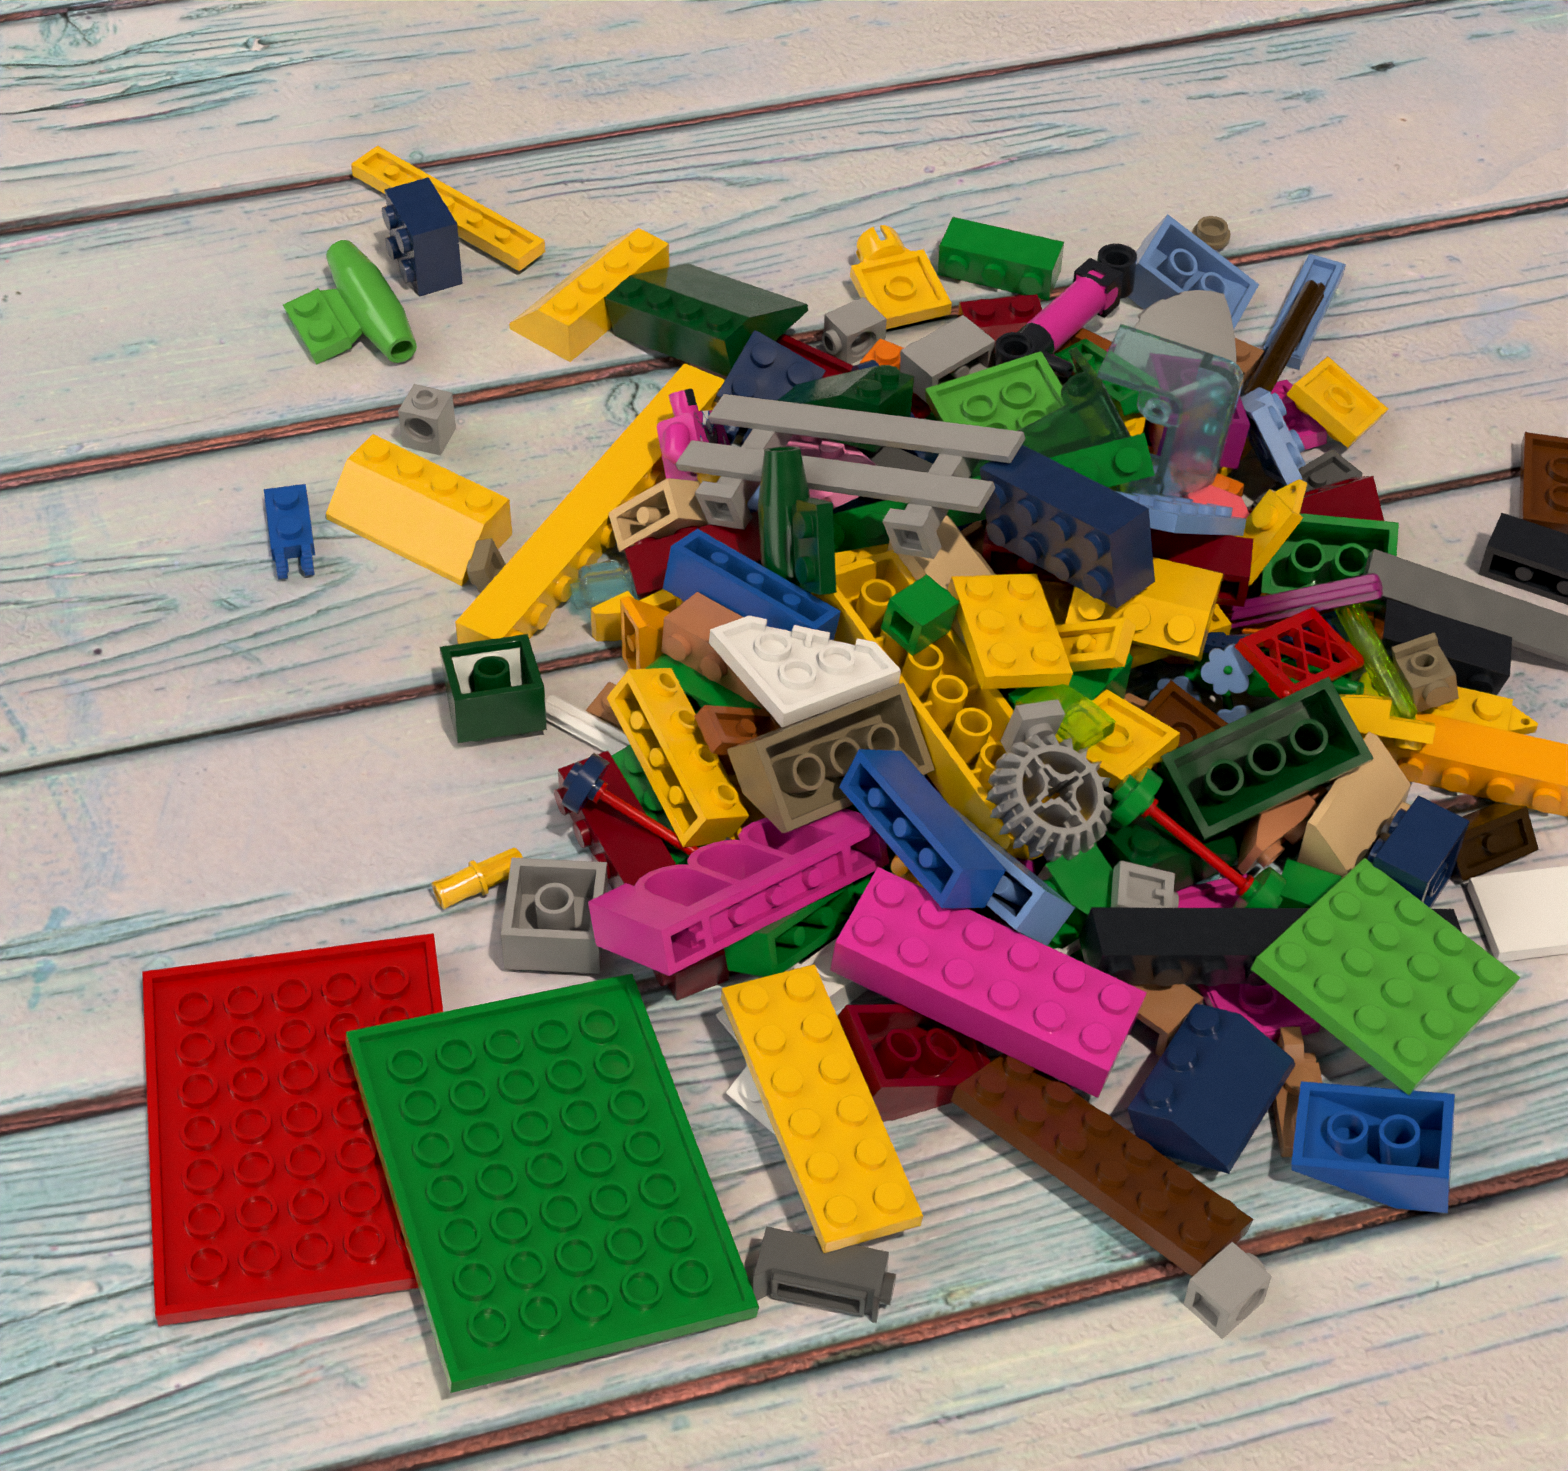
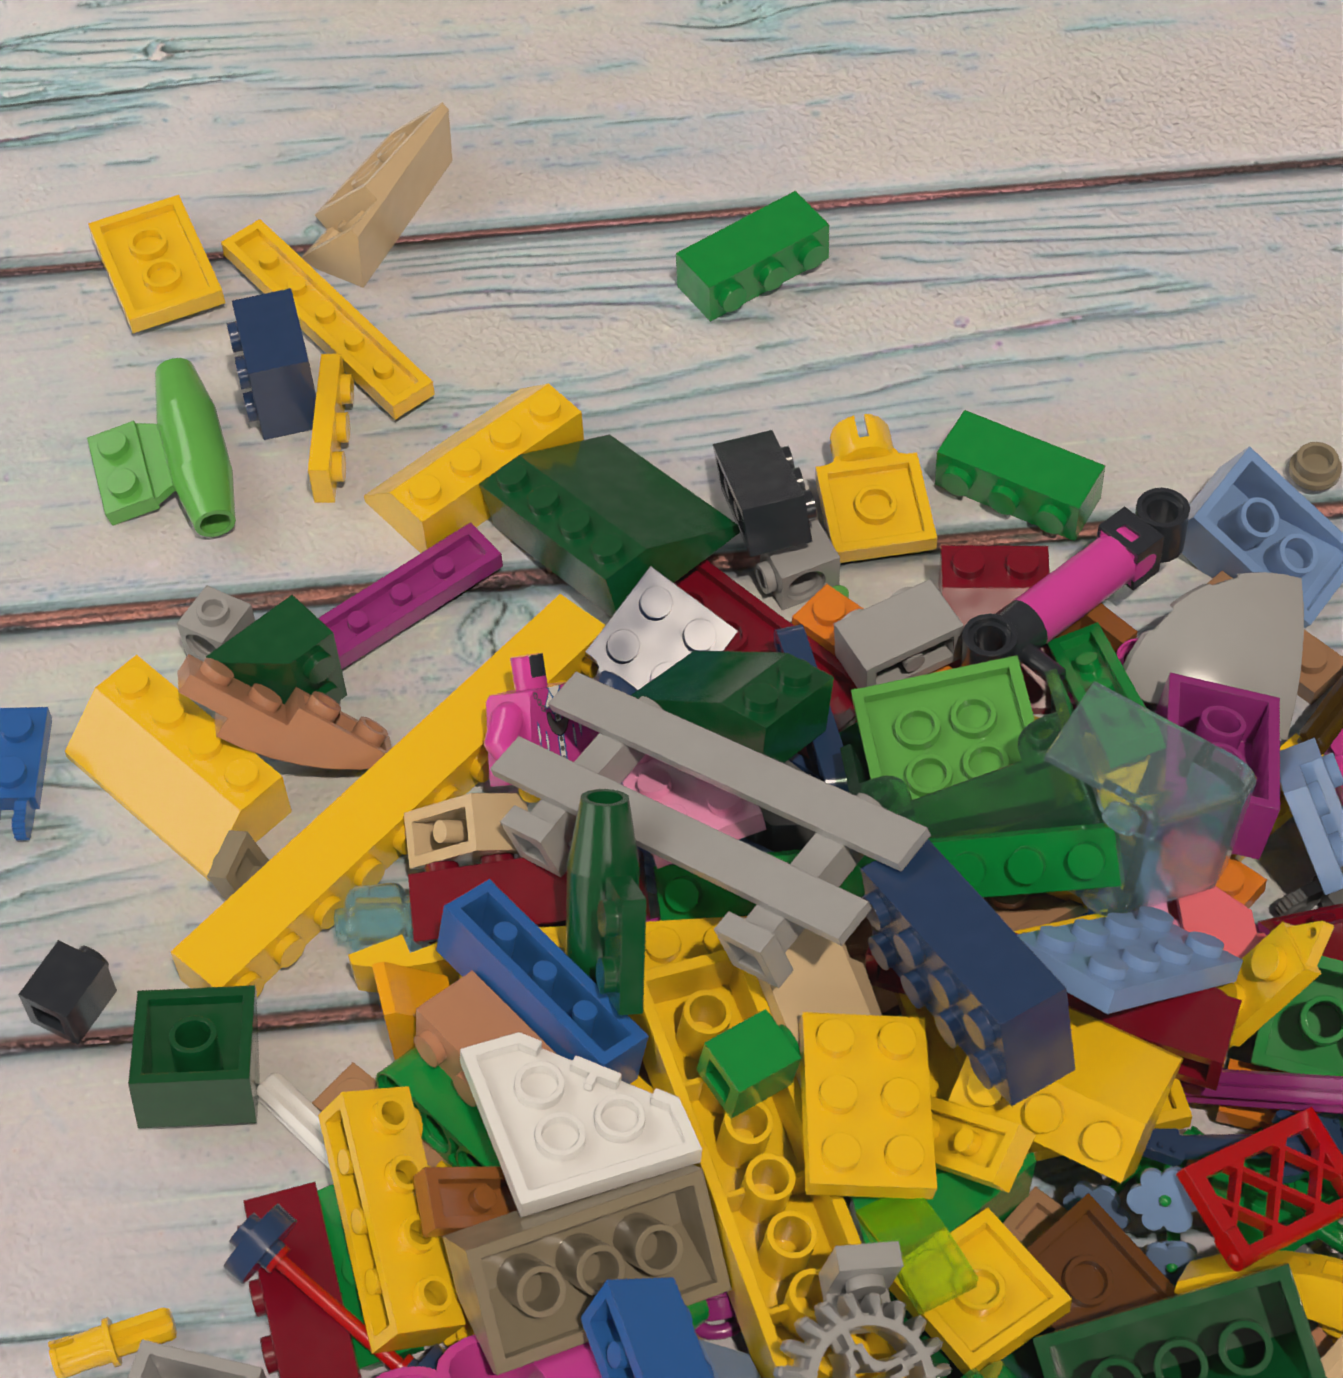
camera: 15 degrees right, 5 degrees up
(302, 184) = (156, 263): none -> yellow plate
(379, 662) = (68, 991): none -> black brick
(468, 123) = (382, 198): none -> tan slope
(474, 280) = (330, 428): none -> yellow plate
(486, 432) = (285, 652): none -> dark green slope
(510, 470) = (301, 732): none -> nougat slope
(559, 385) = (411, 592): none -> magenta plate
(764, 136) = (752, 256): none -> green brick
(820, 281) = (765, 492): none -> black brick

